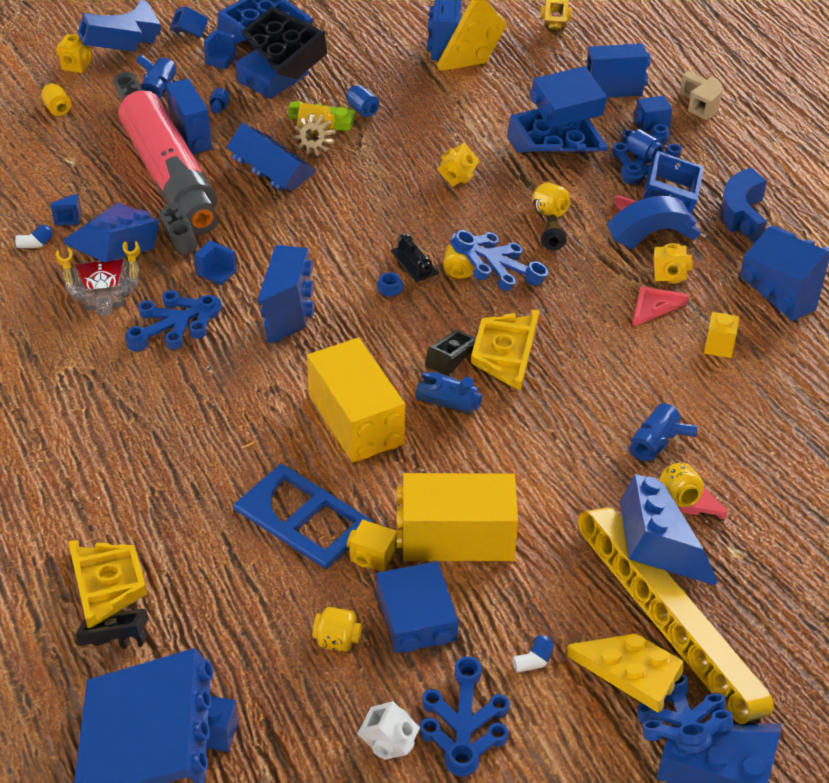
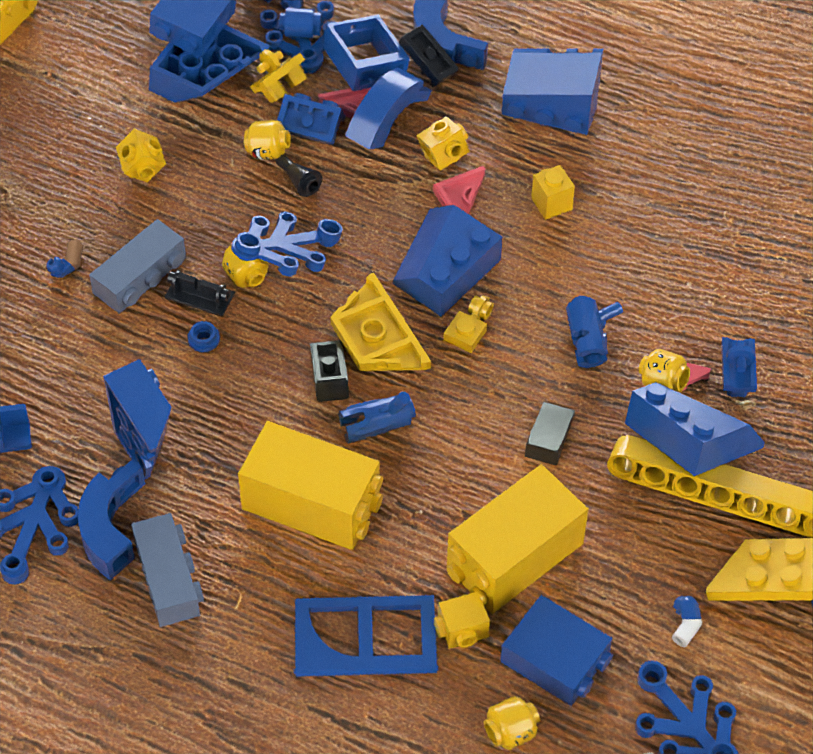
camera: 40 degrees left, 10 degrees up
(216, 337) = (102, 542): none -> blue arch
(219, 394) = (167, 569): none -> sand blue brick
(355, 200) = (62, 267): none -> arm
(388, 221) = (138, 266): none -> sand blue brick
(561, 477) = (549, 433): none -> slope
(571, 383) = (468, 330): none -> yellow plate
(588, 169) = (270, 83): none -> yellow hips
(594, 203) = (311, 118): none -> blue bracket
(602, 335) = (447, 258): none -> blue wedge
(714, 207) = (428, 55): none -> black plate
(747, 519) = (738, 366): none -> blue hips

